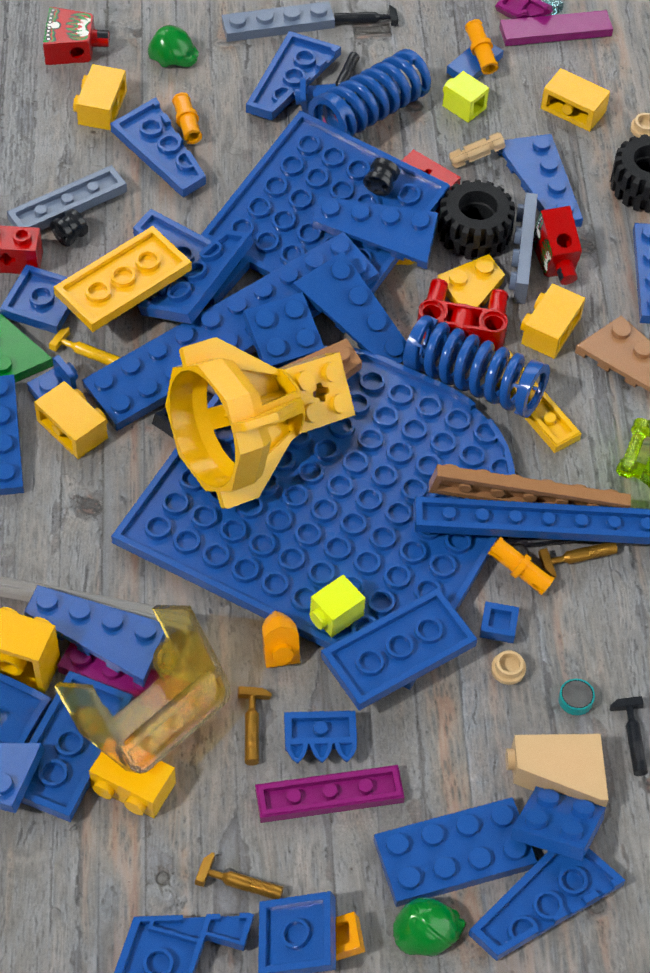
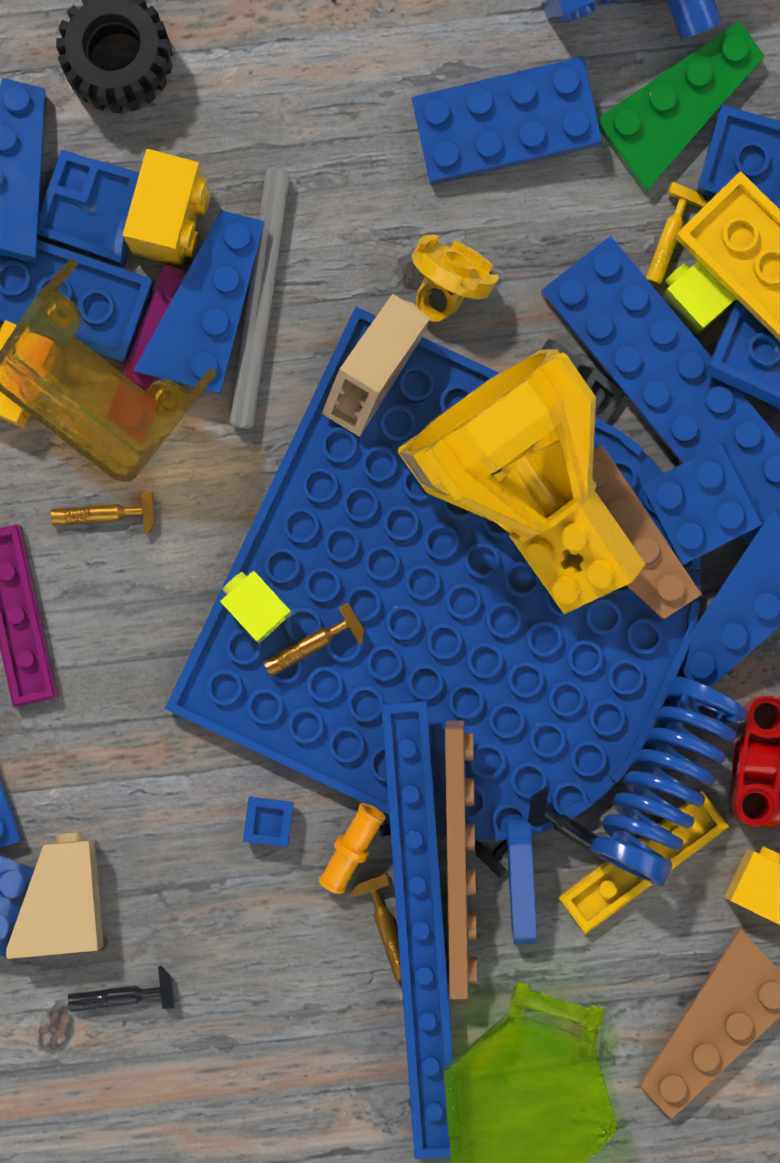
camera: 90 degrees right, 30 degrees up
(49, 380) = (603, 198): blue bracket -> none
(71, 419) = (541, 230): yellow brick -> none
(97, 470) = (454, 271): none -> yellow tile
(132, 330) = (696, 296): none -> neon yellow brick
(162, 514) = (375, 364): none -> tan slope
(280, 640) = (217, 537): light orange plate -> none
(320, 733) = (90, 598): blue plate -> none
(364, 574) = (314, 642): none -> pearl gold piece
(398, 648) = (202, 690): blue plate -> none
(504, 432) = (561, 823): none -> black piece
(508, 667) = (205, 834): tan plate -> none
(528, 458) = (521, 881): none -> blue beam
(576, 697) = (170, 922): tile -> none

